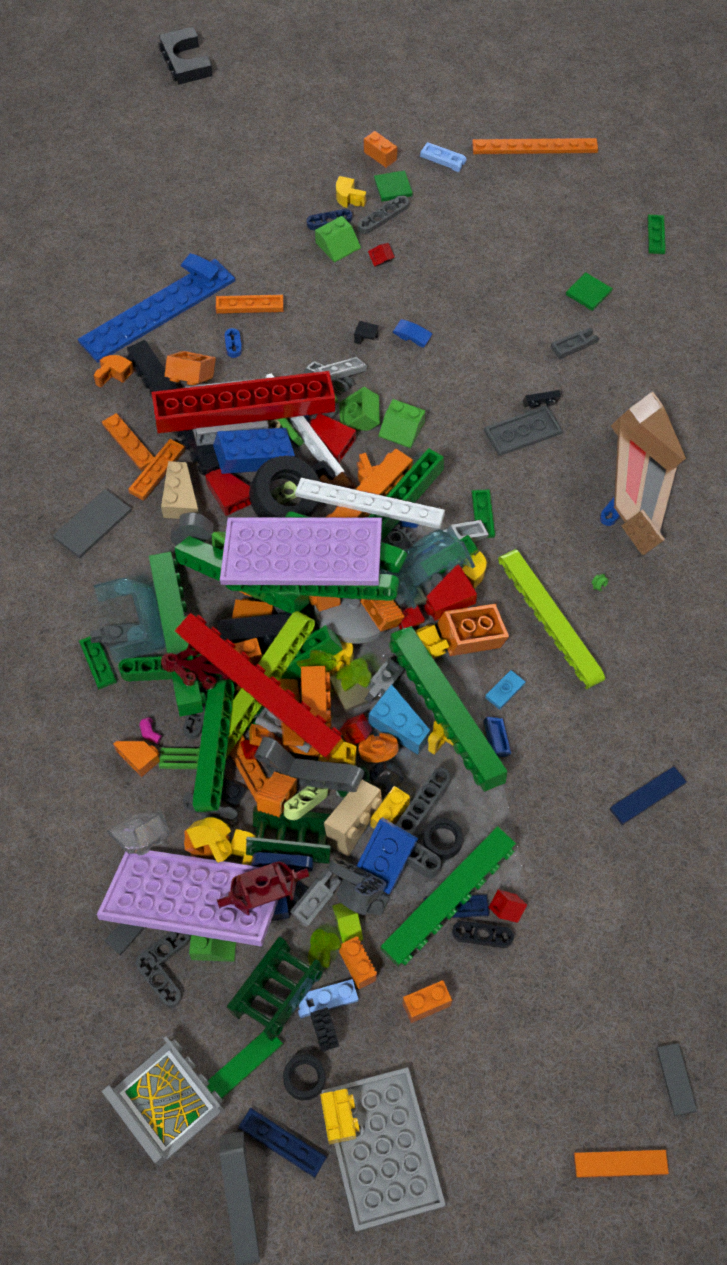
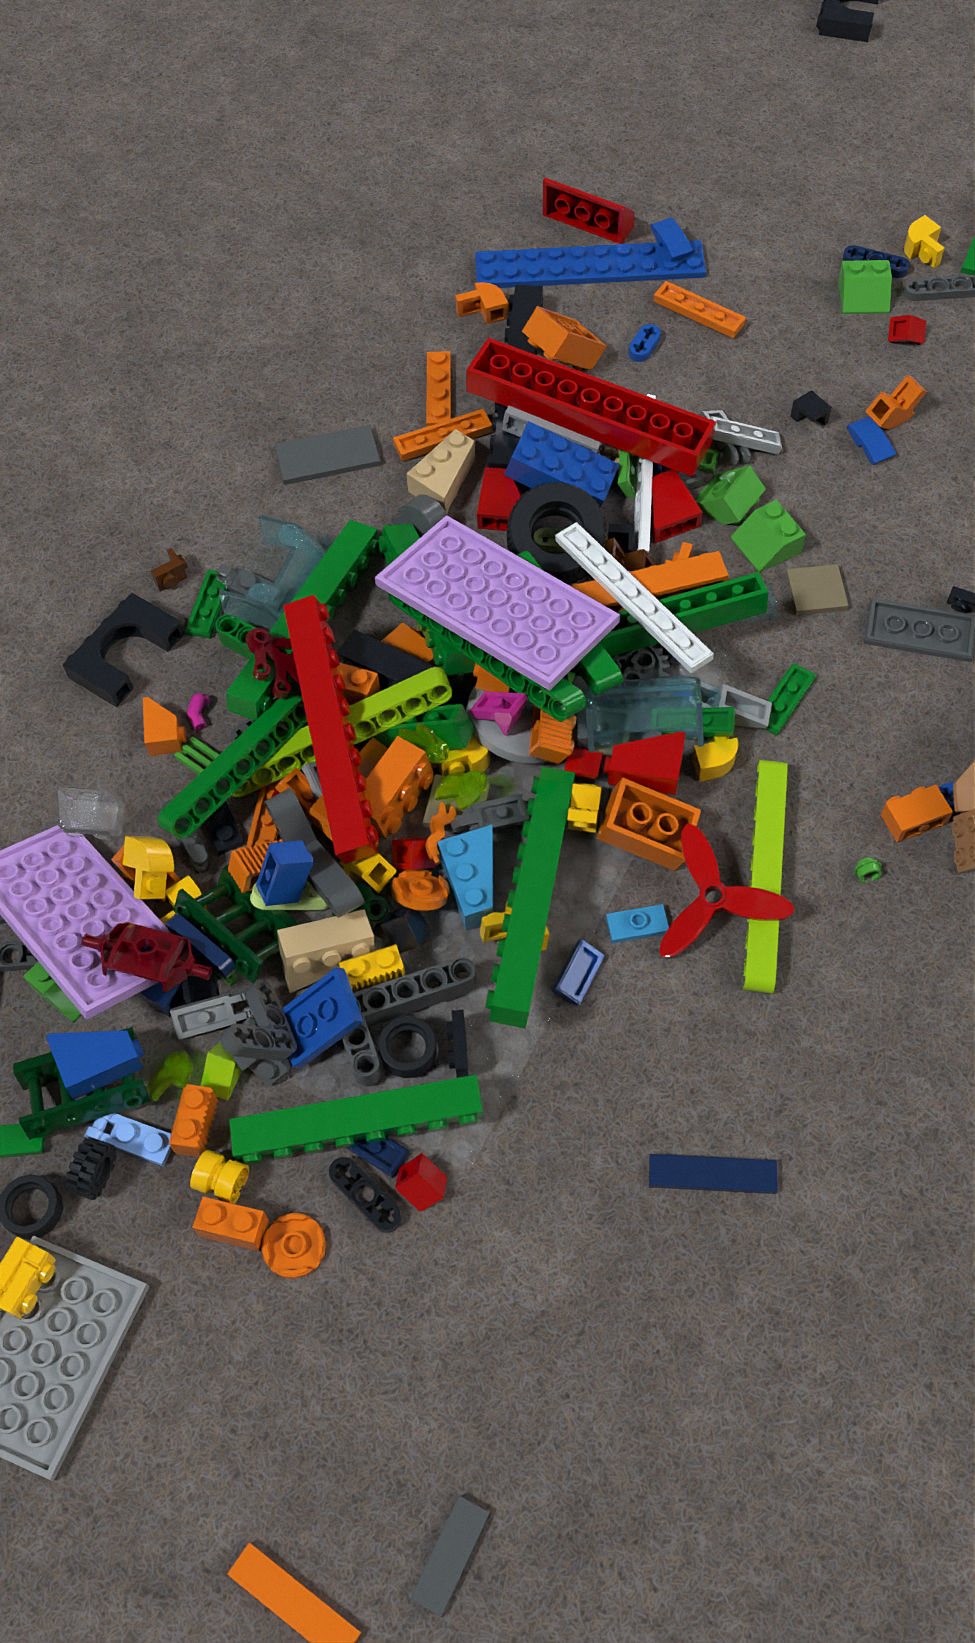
camera: 40 degrees right, 0 degrees up
(58, 657) = (170, 573): none -> reddish brown bracket
(59, 699) = (130, 619): none -> black arch
(130, 276) = (586, 211): none -> red slope
(277, 967) = (94, 1058): none -> blue slope
(301, 787) = (284, 873): none -> blue brick
(347, 613) = (501, 707): none -> dark pink slope
(358, 705) = (437, 826): none -> orange hair
(399, 981) = (217, 1175): none -> yellow wheel
(412, 305) = (898, 407): none -> orange brick
(450, 439) = (816, 589): none -> dark tan tile
(467, 989) = (298, 1255): none -> orange tile
(473, 821) = (456, 1032): none -> black plate
(553, 641) = (737, 900): none -> red piece
(601, 535) = (916, 812): none -> orange brick

